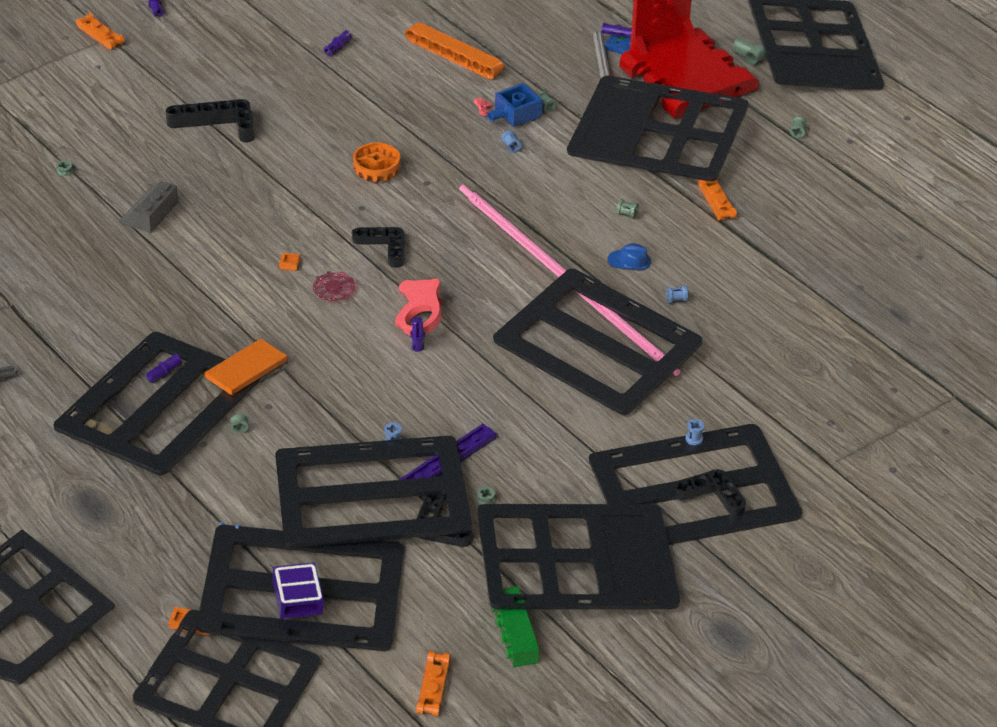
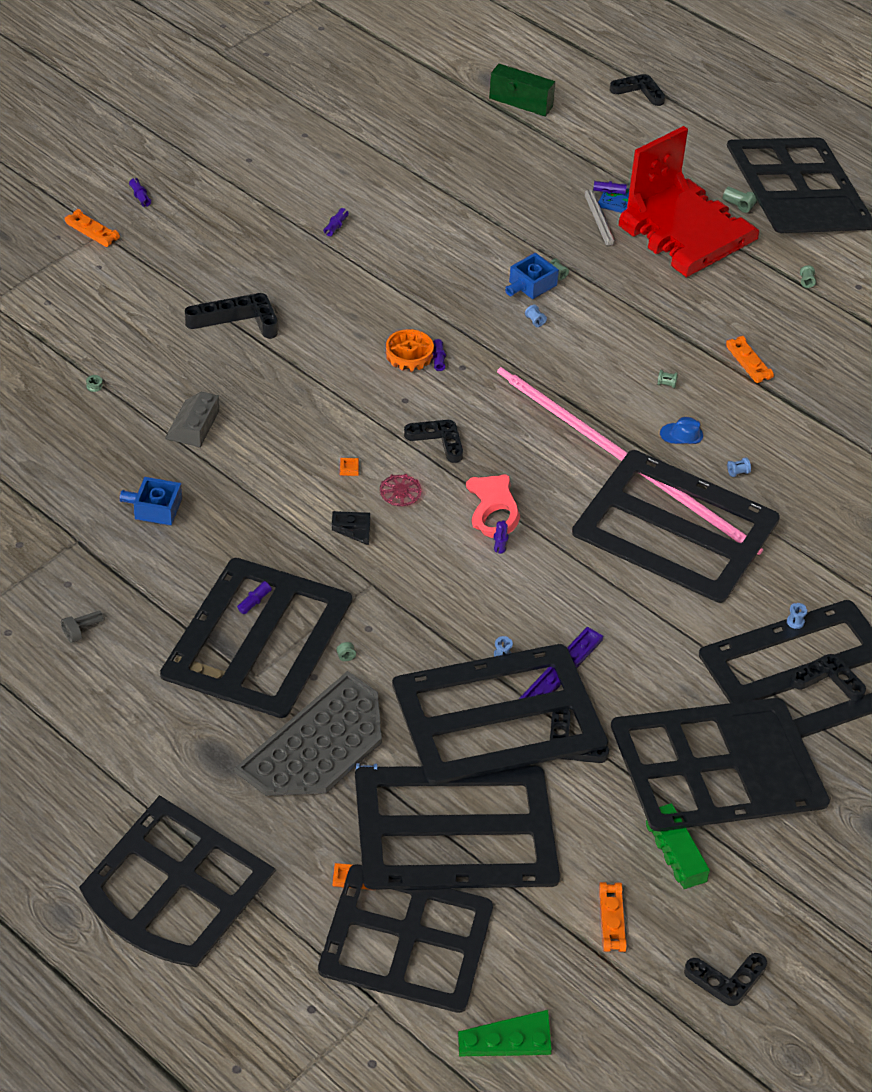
camera: 10 degrees left, 5 degrees up
(92, 274) = (155, 501): none -> blue brick
(189, 500) = (318, 742): none -> dark grey plate
(246, 366) = (337, 588): orange tile -> none
(277, 313) = (352, 524): none -> black wing
(297, 590) = (456, 832): dark purple brick -> none
(405, 169) = (438, 355): none -> dark purple pin
(454, 50) = (454, 221): orange beam -> none
(483, 105) = (496, 277): coral piece -> none
(486, 491) = (610, 710): sand green bush -> none
(622, 113) = (635, 281): black door -> none

